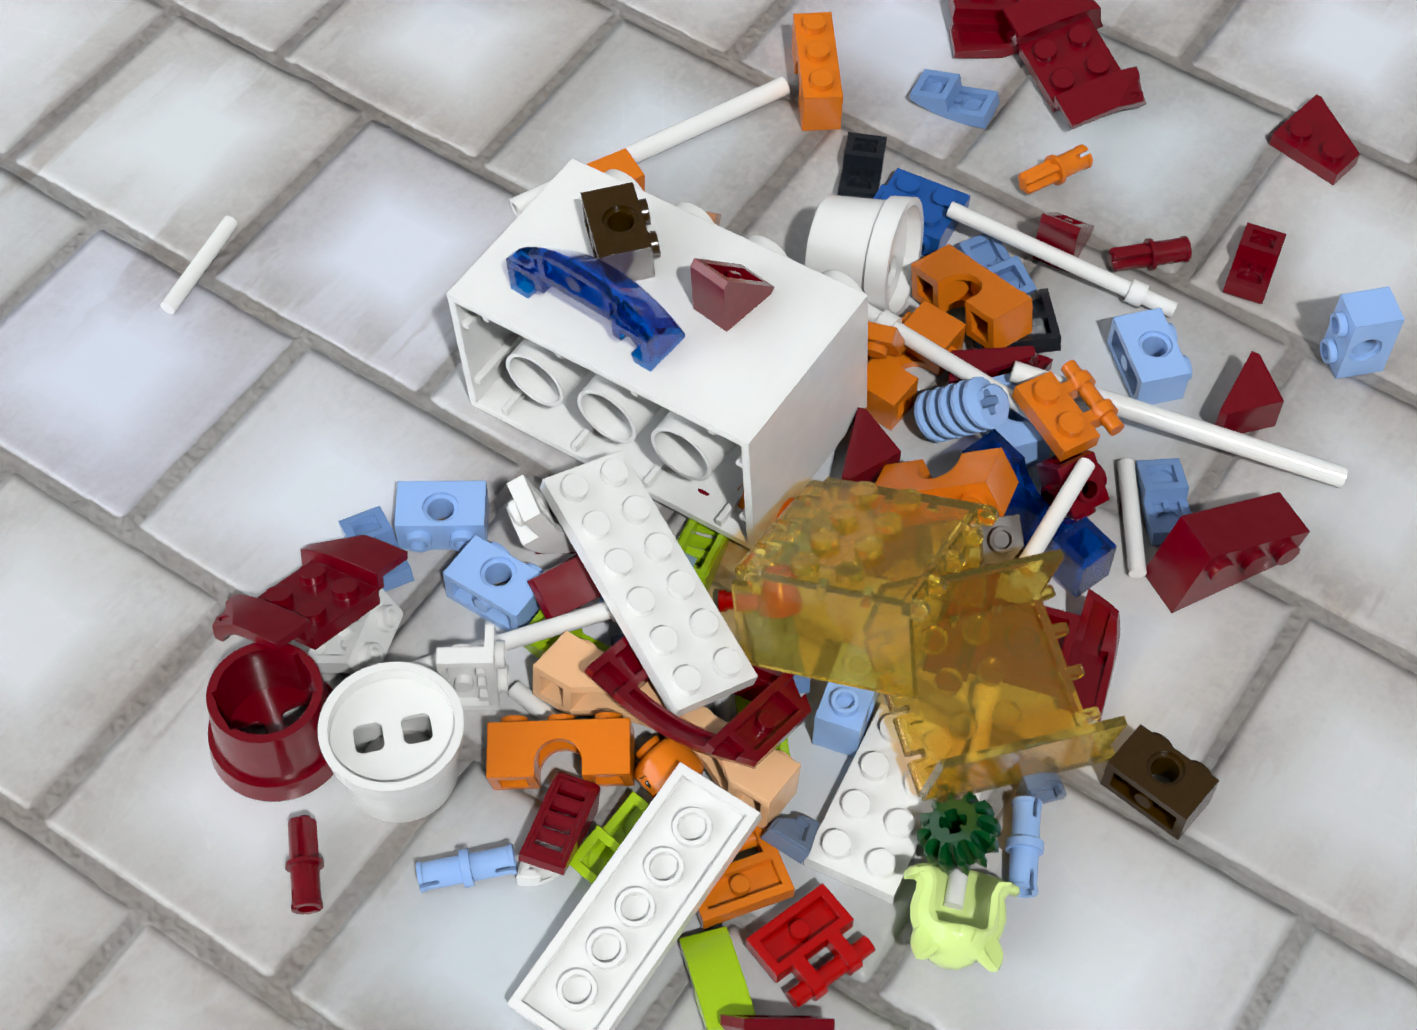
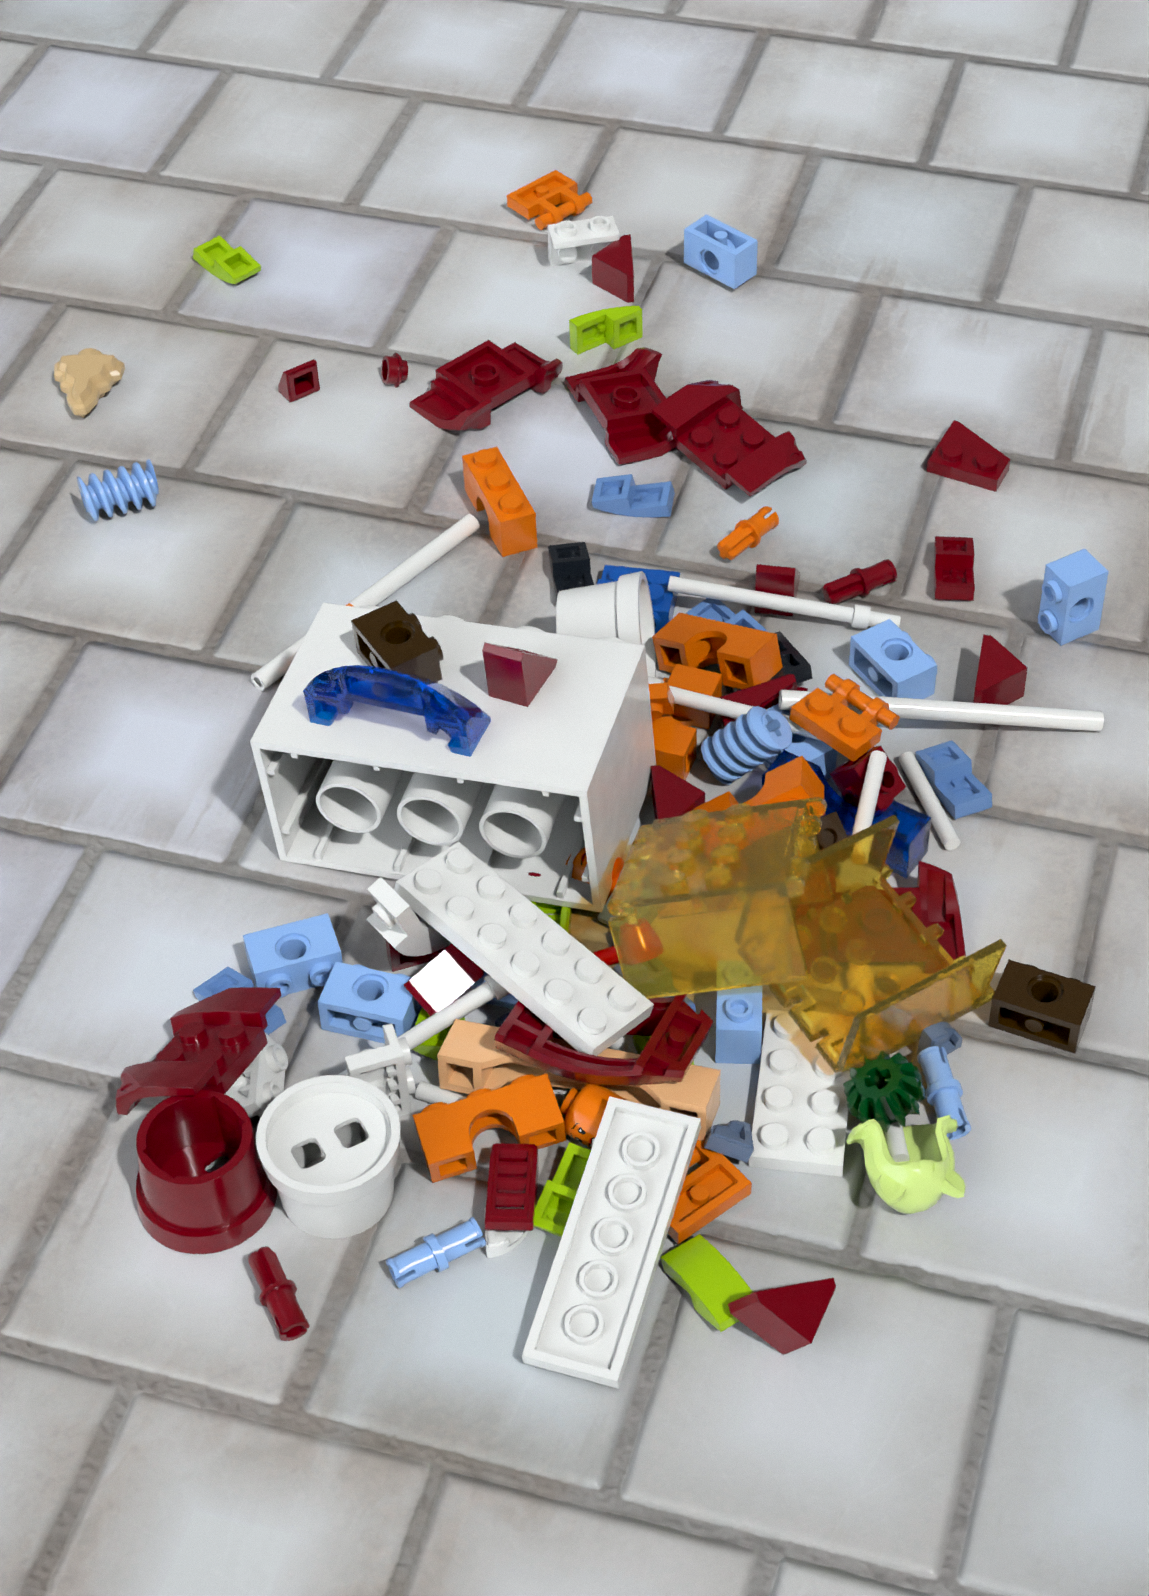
camera: 15 degrees left, 10 degrees down
(801, 933) = (772, 1218): red plate -> none
(1223, 548) = (1021, 801): dark red wedge -> none

